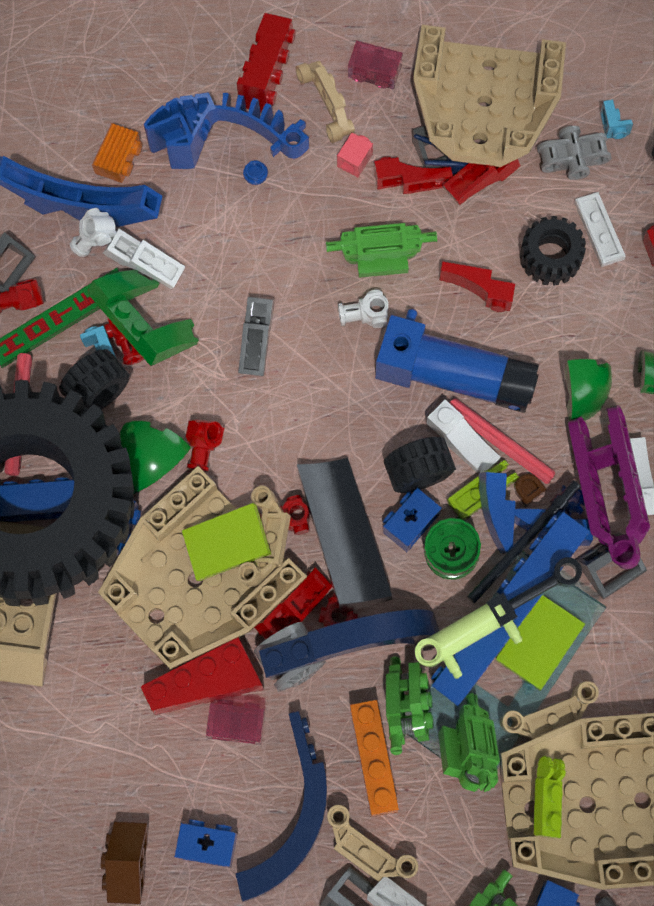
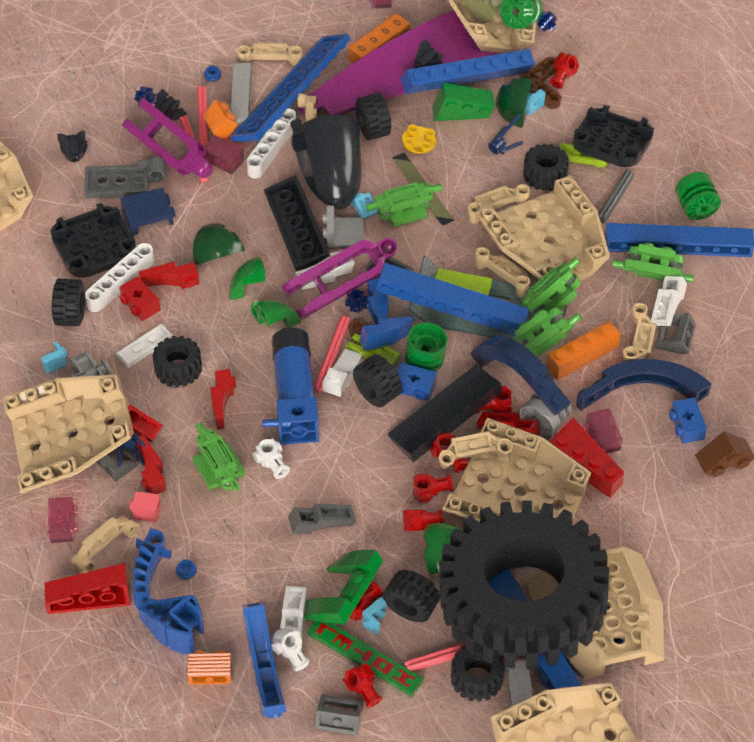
camera: 115 degrees left, 20 degrees down
(226, 542) = (488, 470): lime tile -> none
(246, 477) = (431, 485): none -> red connector
(488, 618) = (462, 294): yellowish green piece -> none
(548, 797) = (557, 250): lime hinge -> none
(557, 505) = (367, 298): black bar -> none

